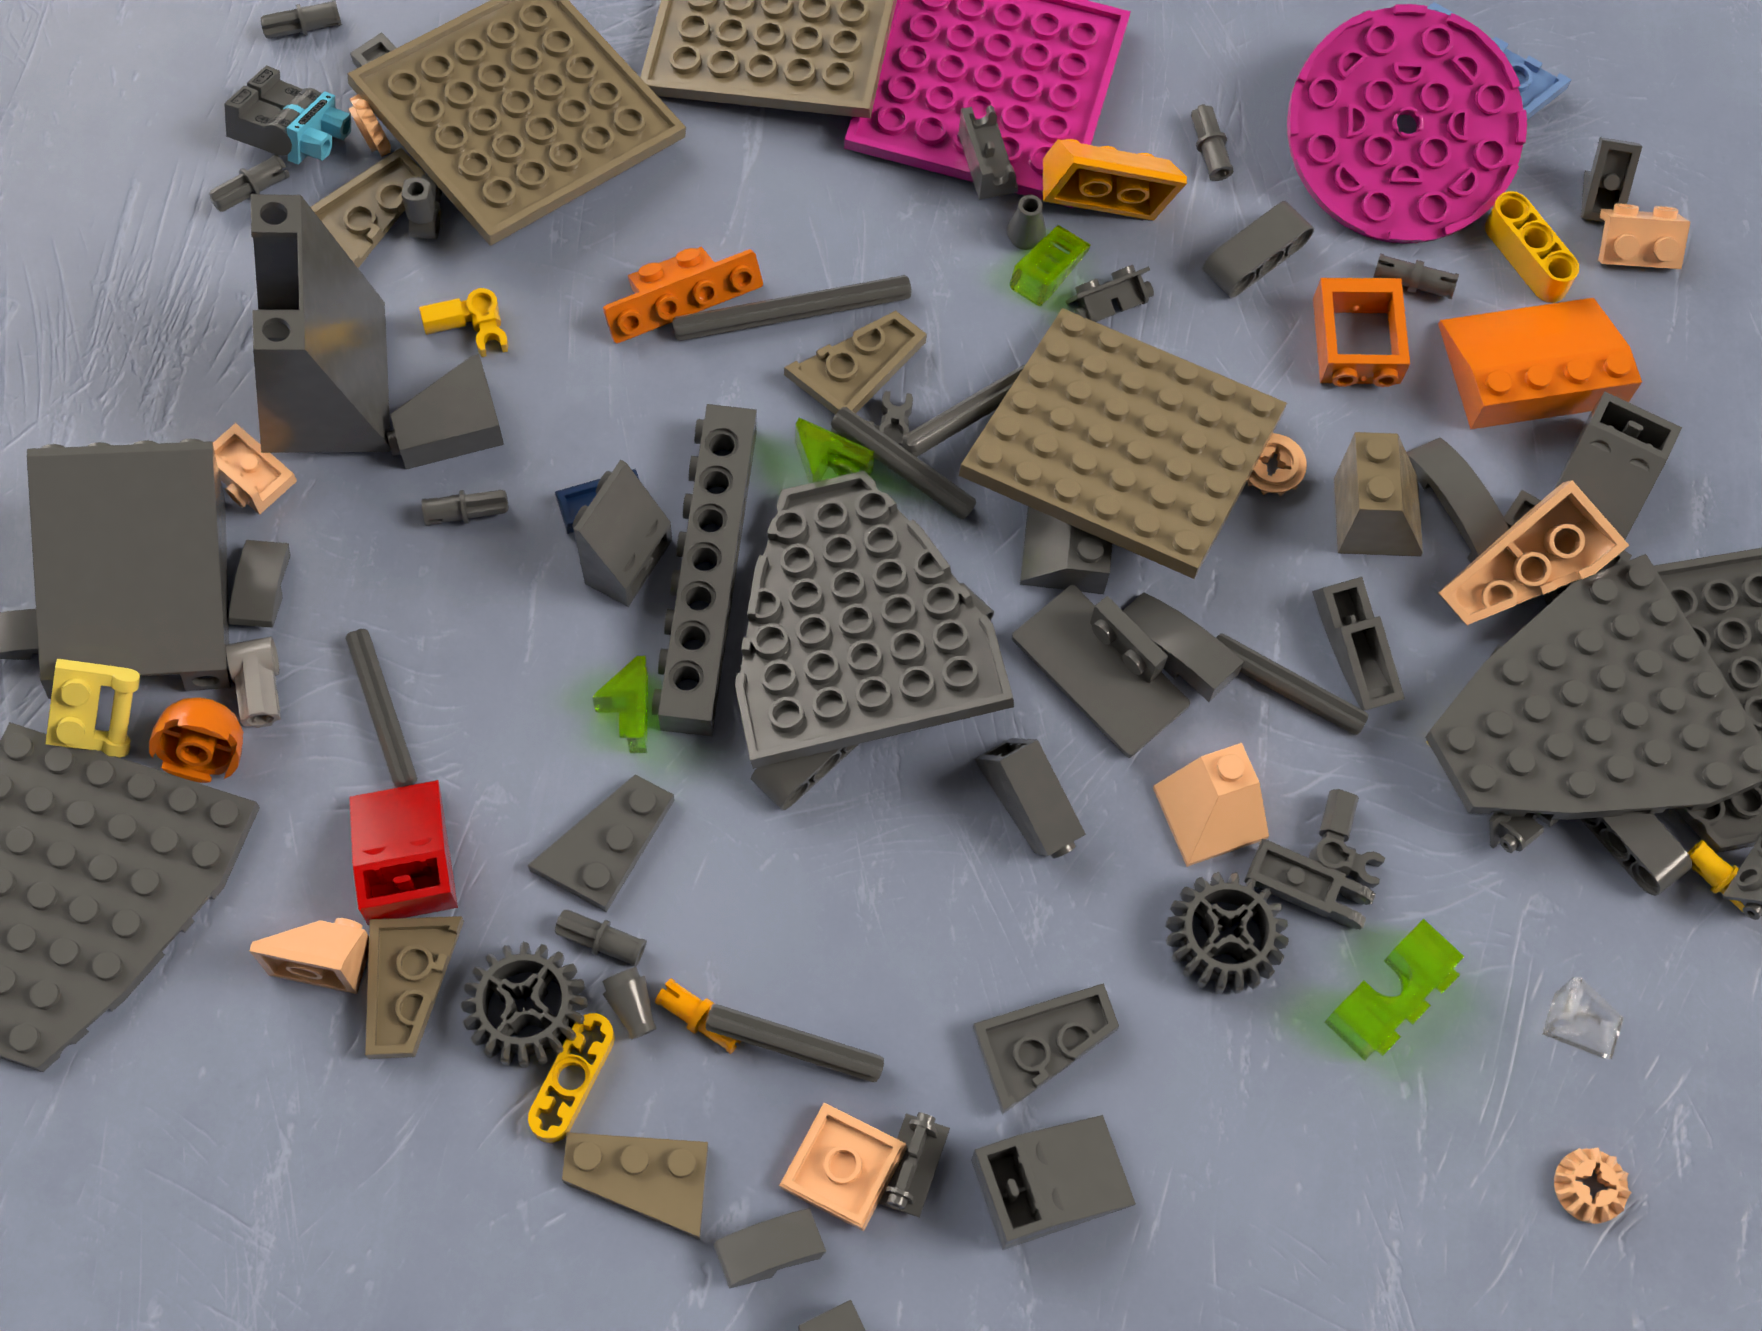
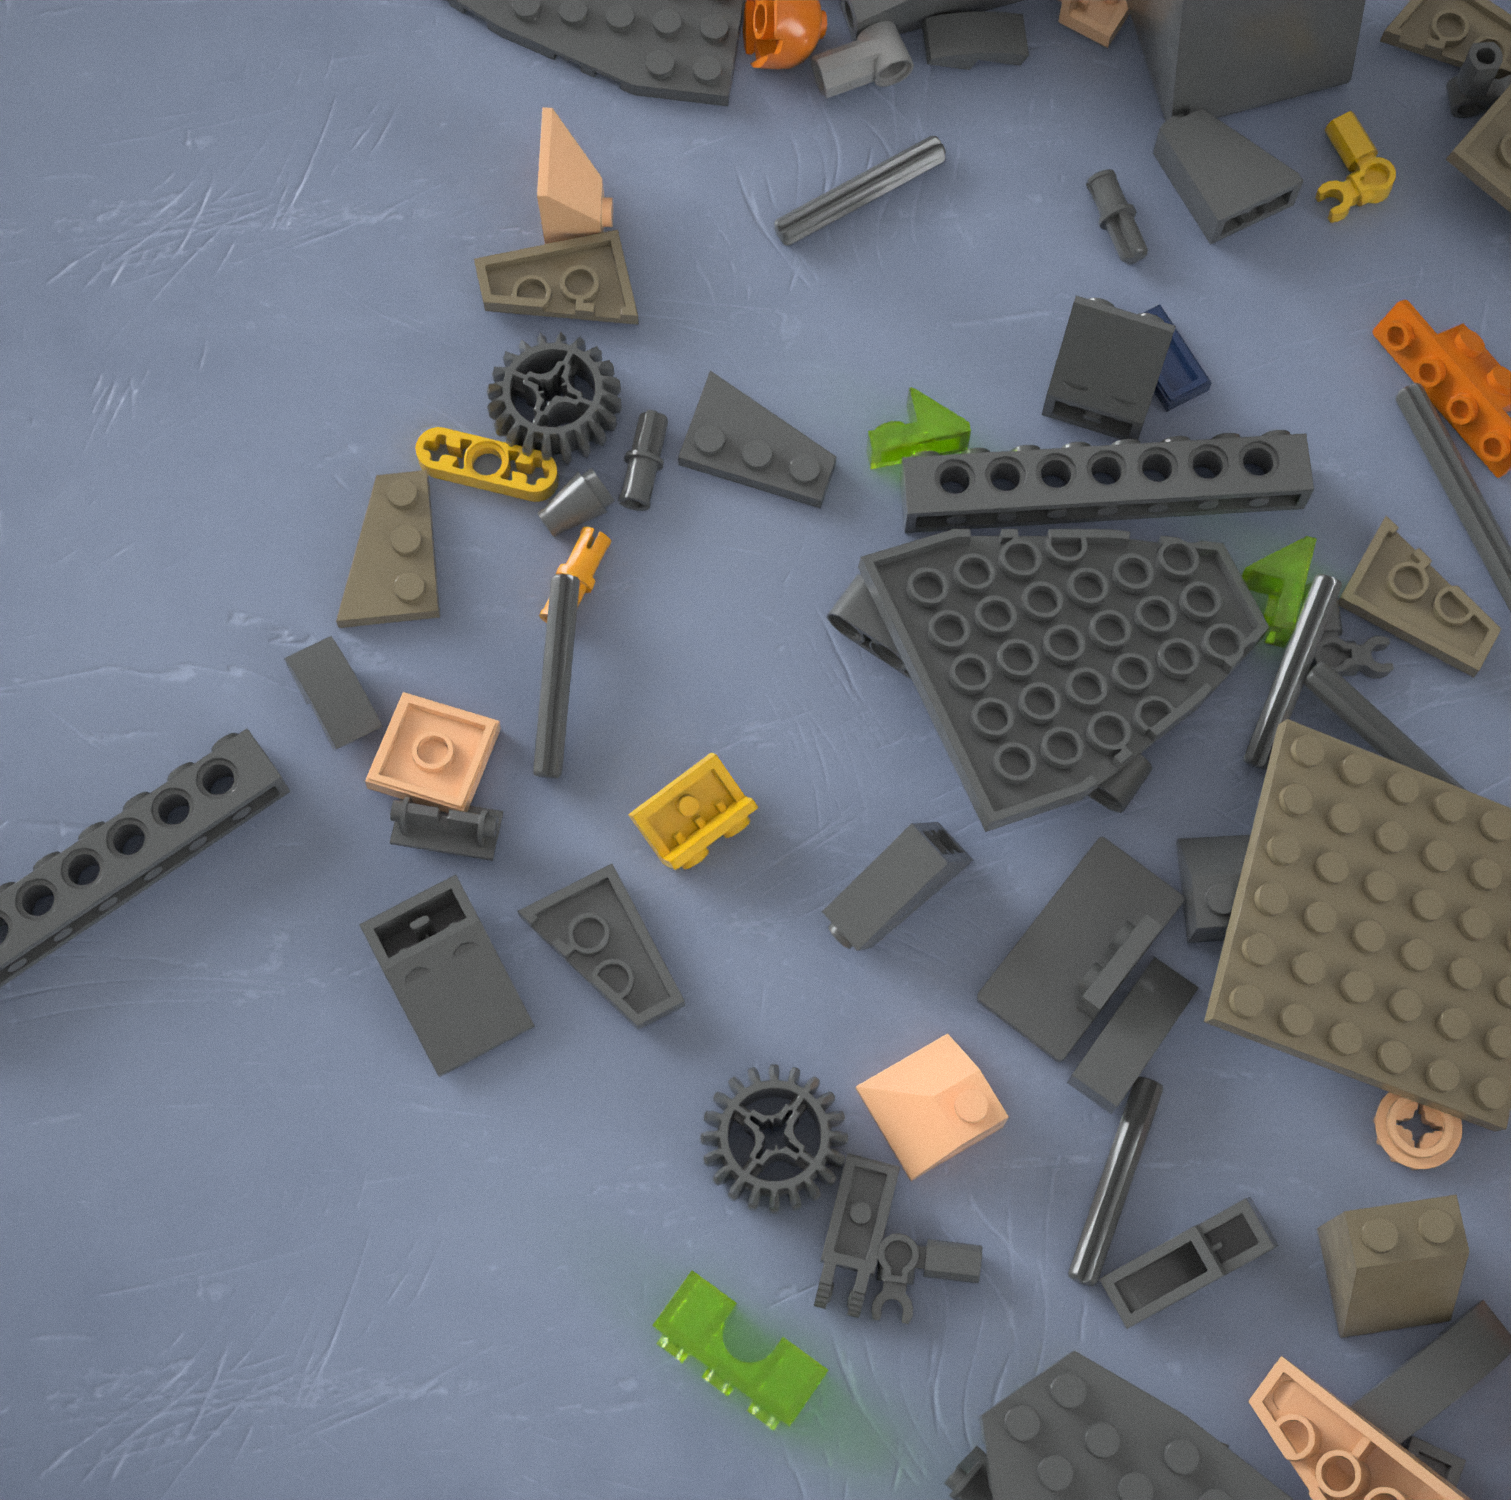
camera: 85 degrees right, 5 degrees up
(401, 852) = (697, 241): red slope -> none
(941, 948) = (693, 813): none -> yellow bracket

